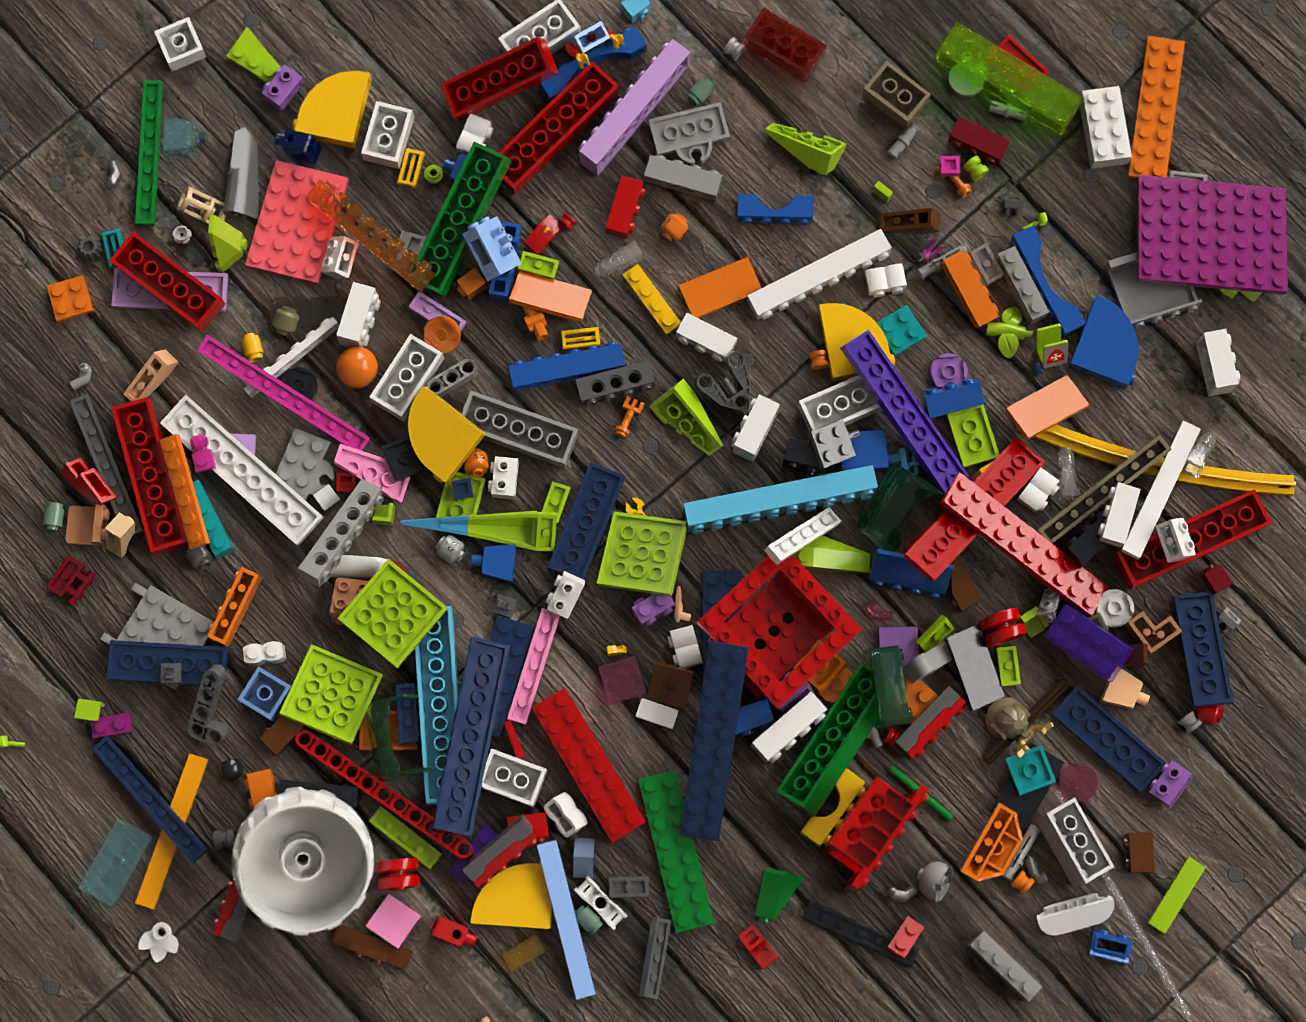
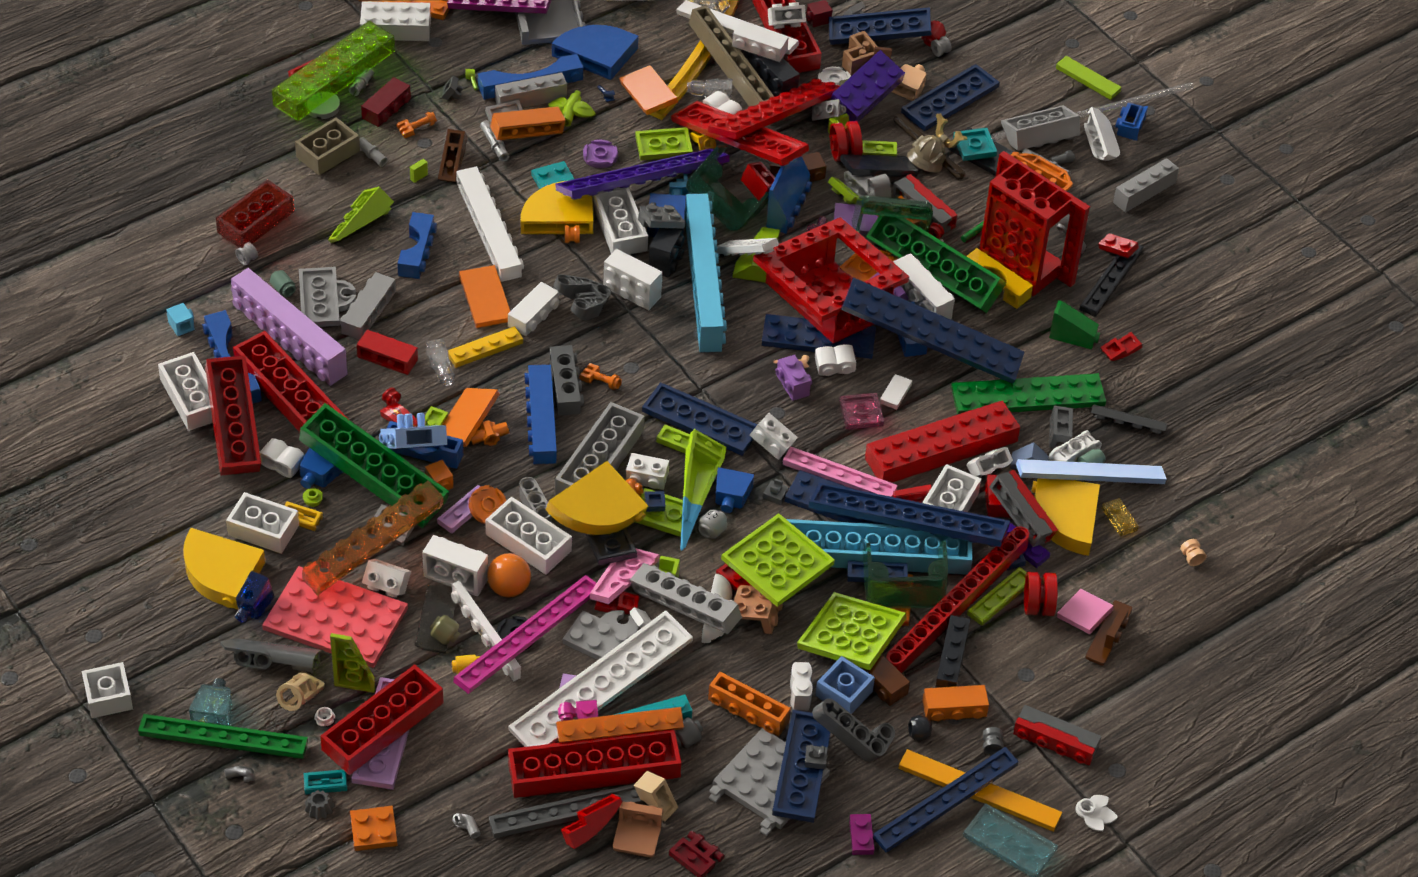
camera: 85 degrees left, 30 degrees down
(53, 516) = (622, 862): sand green brick -> none
(88, 710) = (844, 848): lime panel -> none
(151, 375) = (481, 757): light nougat slope -> none
(253, 56) = (139, 634): lime wing -> none
(282, 87) = (184, 606): medium lavender brick -> none
(307, 893) = (1028, 643): white wheel -> none
(444, 928) = (1101, 557): red torso -> none
(578, 339) = (513, 415): yellow tile -> none
(588, 39) = (211, 345): torso -> none
(613, 650) = (831, 414): yellow tile -> none
(640, 504) = (696, 382): yellow bar -> none
(642, 553) = (741, 373): lime plate -> none
(670, 684) = (870, 373): reddish brown plate -> none
(674, 227) = (417, 317): orange head -> none
(685, 413) = (604, 335): lime wedge -> none
(885, 280) = (504, 179): white brick -> none
(926, 253) = (485, 148): flat silver piece -> none
(950, 165) = (406, 119): dark pink plate -> none
(952, 397) = (627, 145): blue brick -> none
(975, 168) = (412, 107): lime wheel -> none
(1022, 882) = (1074, 164): orange wheel -> none
(1050, 347) = (589, 85): piece -> none
(1078, 782) = (986, 119): clear pink tile -> none
(1139, 852) = (1051, 91): reddish brown brick -> none
(1173, 785) = (995, 62): medium lavender brick -> none

